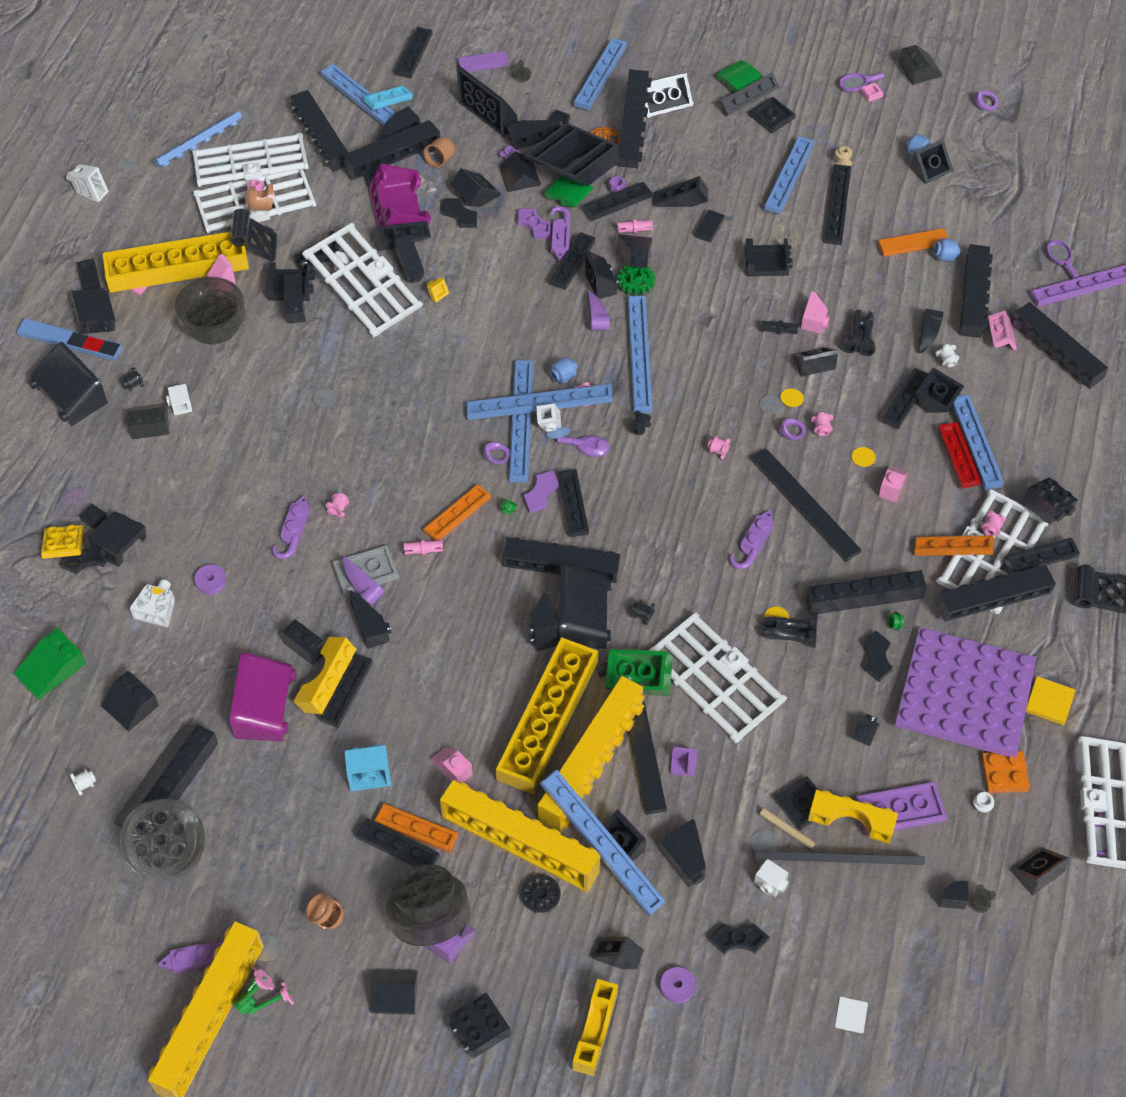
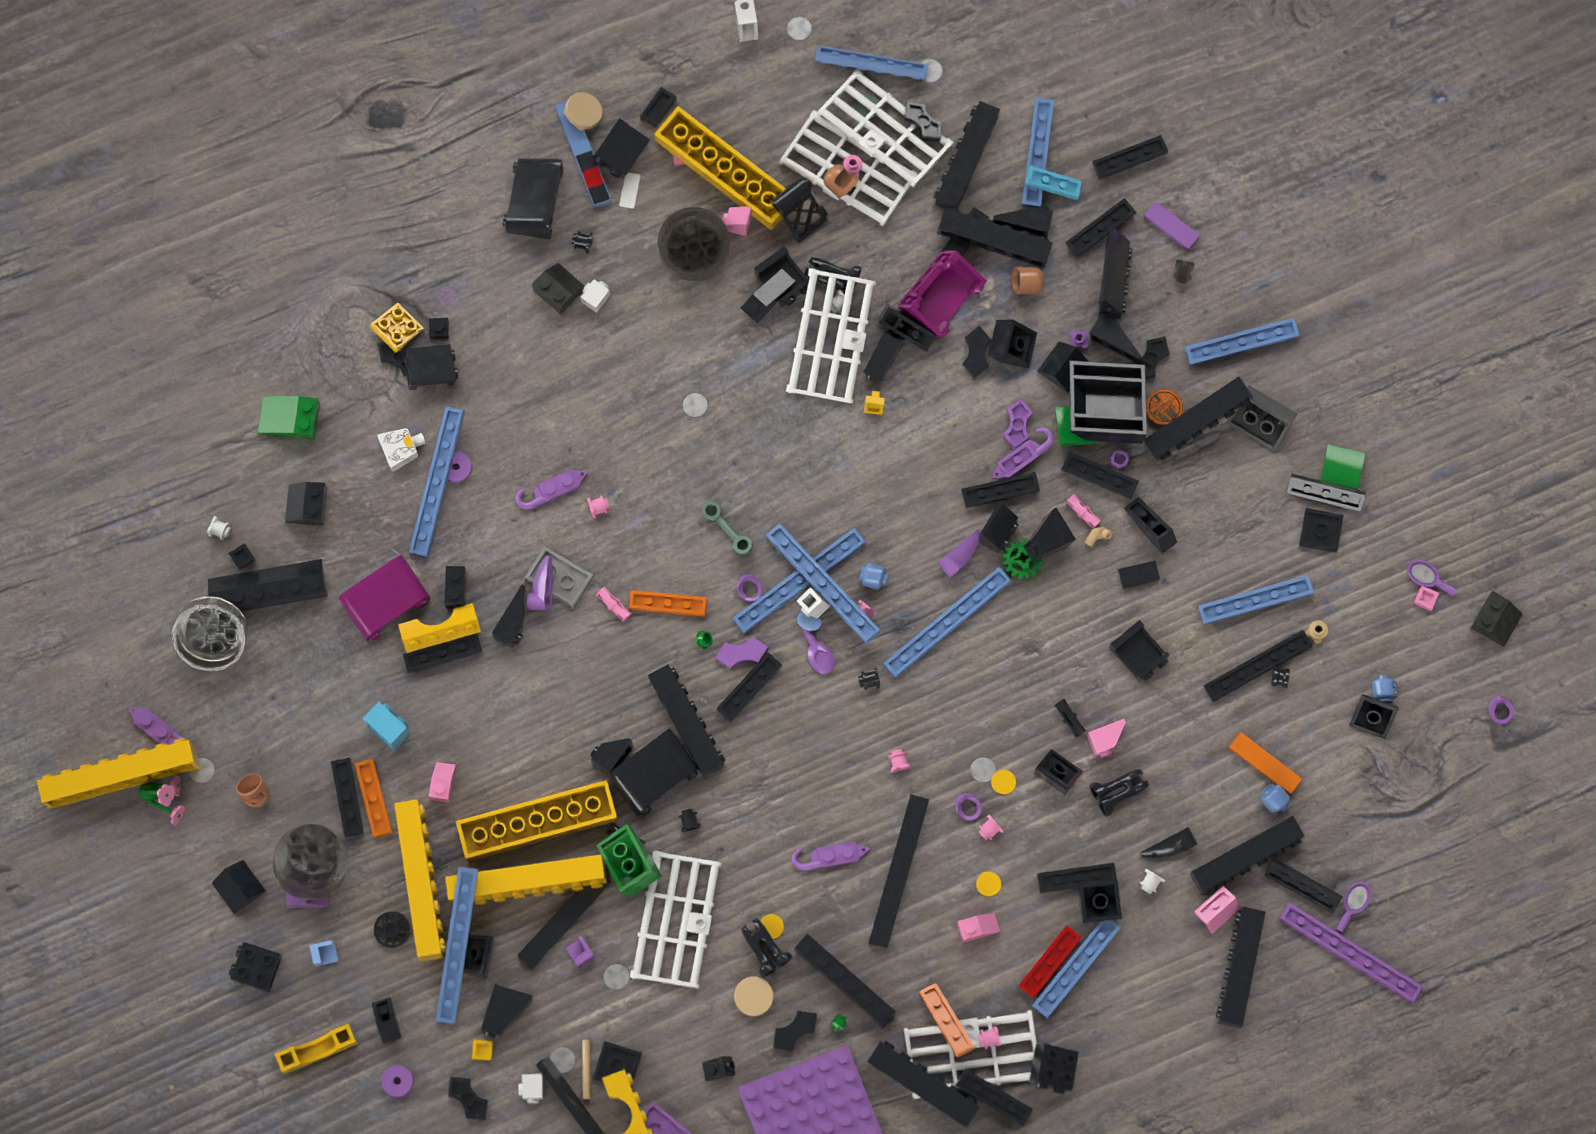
camera: 50 degrees right, 20 degrees up
(40, 315) = (583, 110): none -> tan tile
(122, 781) = (242, 556): none -> black plate
(127, 332) = (629, 190): none -> white sticker
(208, 597) = (436, 482): none -> medium blue tile
(276, 136) = (928, 127): none -> tile
(445, 95) = (1100, 227): none -> black plate
(460, 435) = (712, 512): none -> sand green piece
(514, 962) = (324, 953): none -> light blue panel
(658, 229) = (1098, 533): none -> tan arm
(705, 897) = (482, 1050): none -> yellow tile
(726, 753) = (616, 976): none -> flat silver sticker
(825, 664) = (753, 996): none -> tan tile
(858, 194) = (1280, 677): none -> black wheel
(1025, 274) = (1303, 885): none -> black plate

